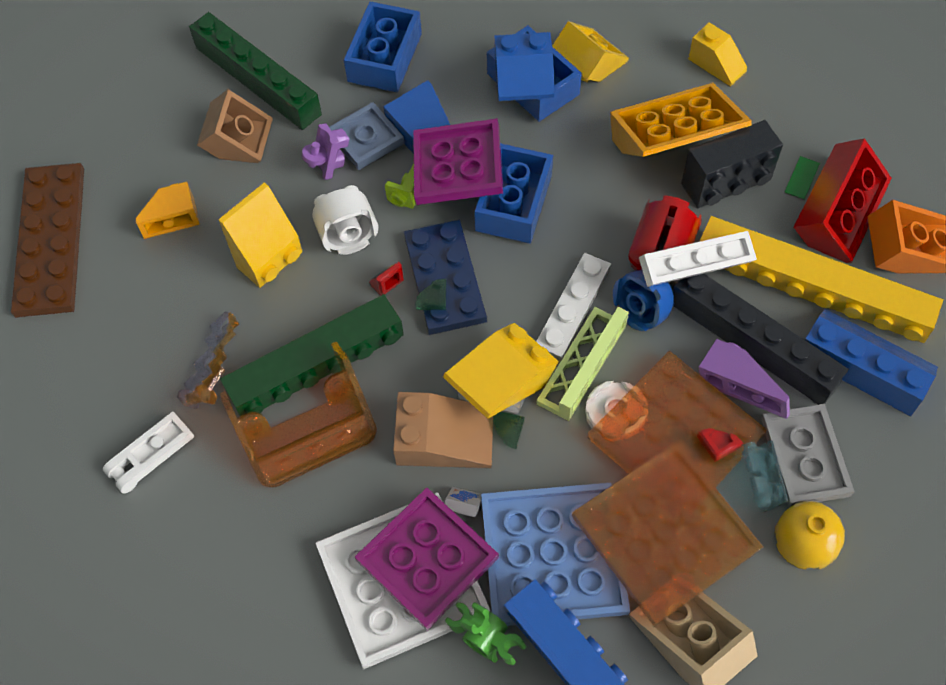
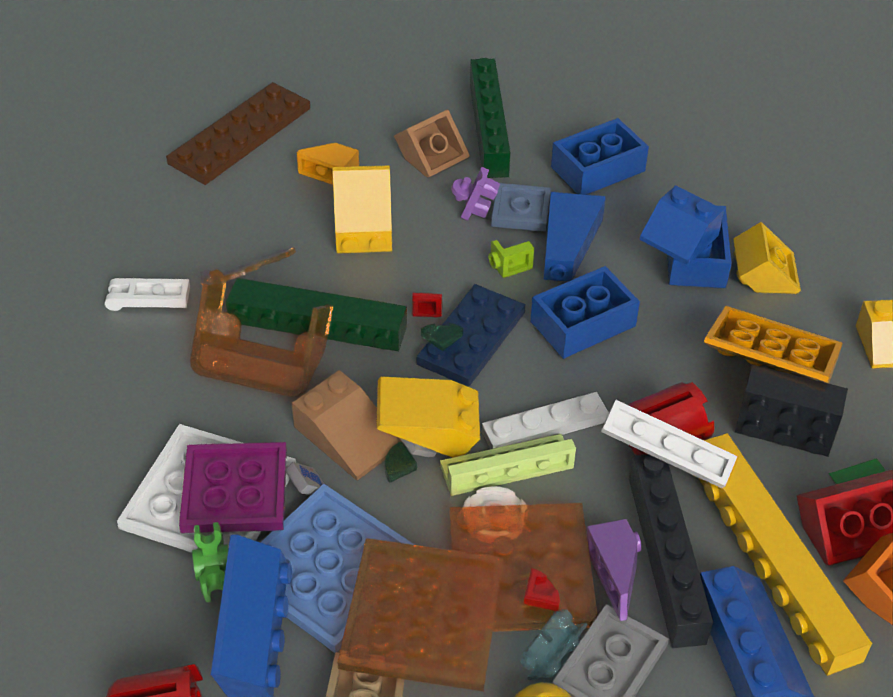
camera: 40 degrees right, 15 degrees down
(344, 220) = (436, 244): white brick -> none
(457, 161) = (556, 255): magenta plate -> none
(645, 304) = (603, 455): blue cylinder -> none

